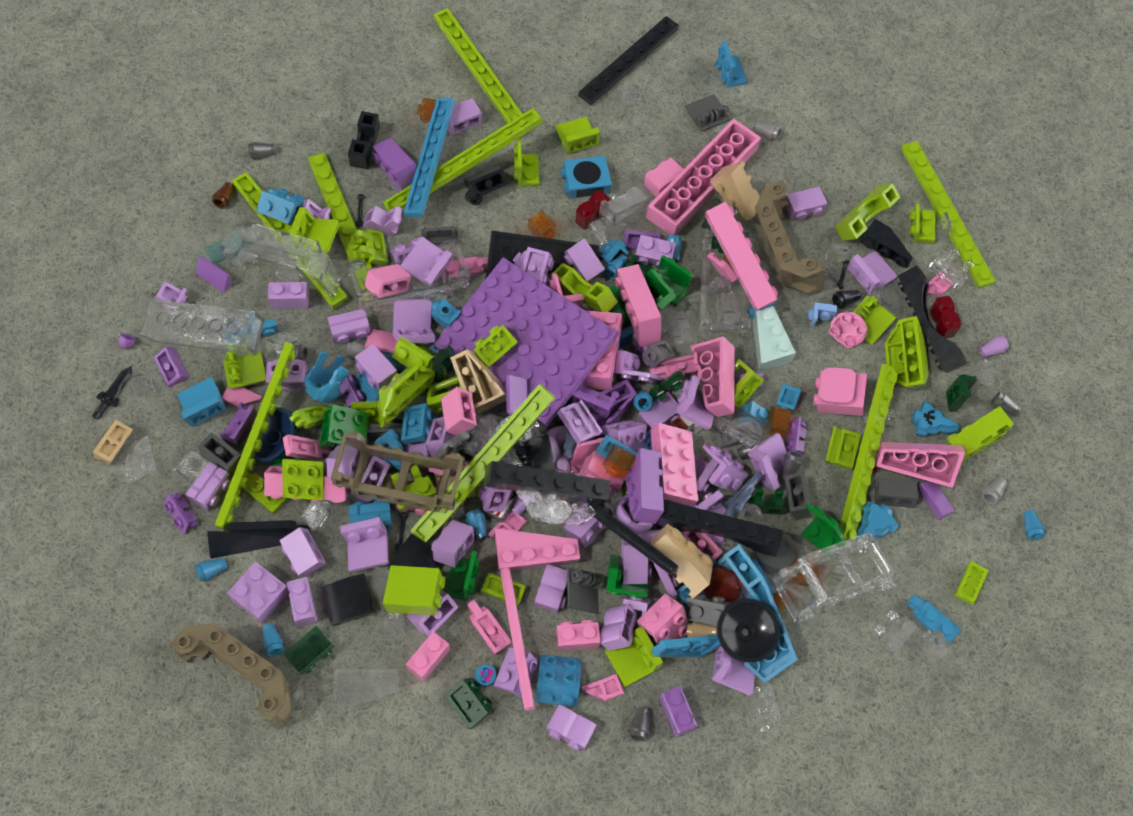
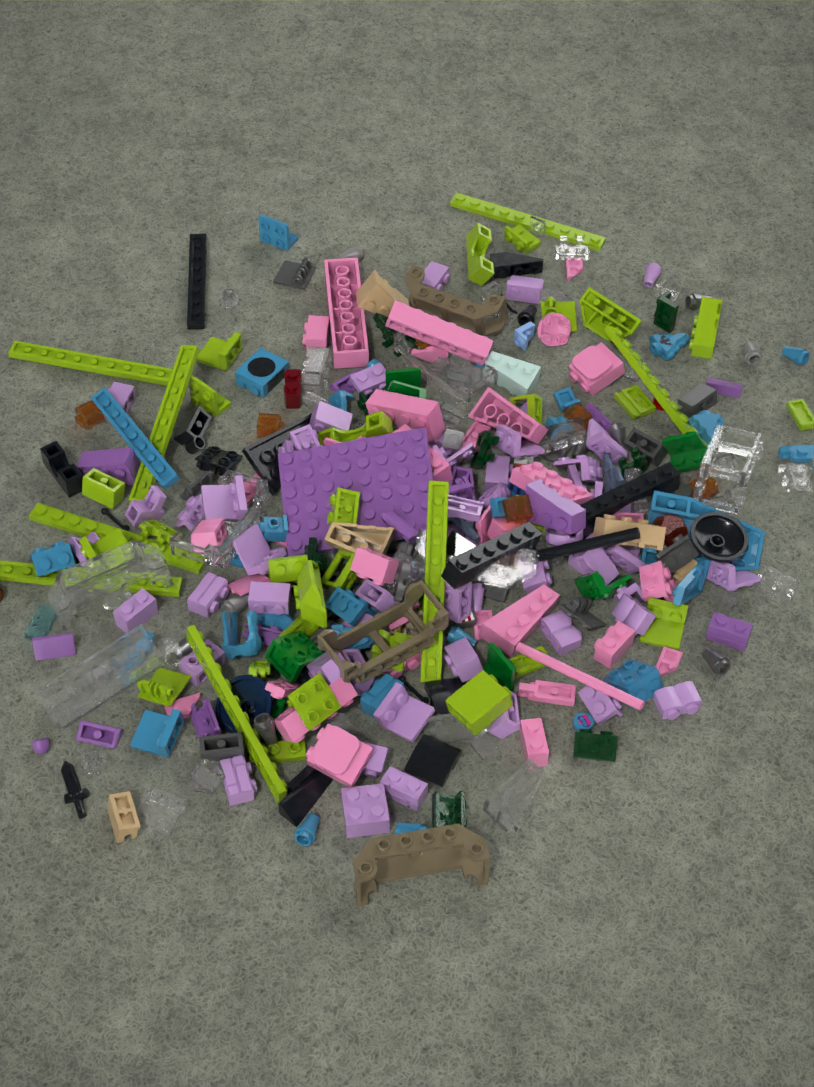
camera: 40 degrees left, 15 degrees down
(171, 293) = (32, 684): lavender bracket -> none
(175, 505) = (234, 817): medium lavender hinge -> none
(259, 464) = (265, 727): none -> flat silver cone
(275, 536) = (339, 755): none -> bright pink brick
(372, 179) = (103, 488): none -> lime brick
(476, 222) = (217, 460): none -> black hinge
(611, 268) = (353, 408): dark azure cone -> none
(643, 404) = (481, 469): dark azure cone -> none
(916, 287) = (630, 296): black arch -> none
(924, 461) = (697, 364): bright pink wedge -> none
(945, 317) = (603, 279): dark red brick -> none

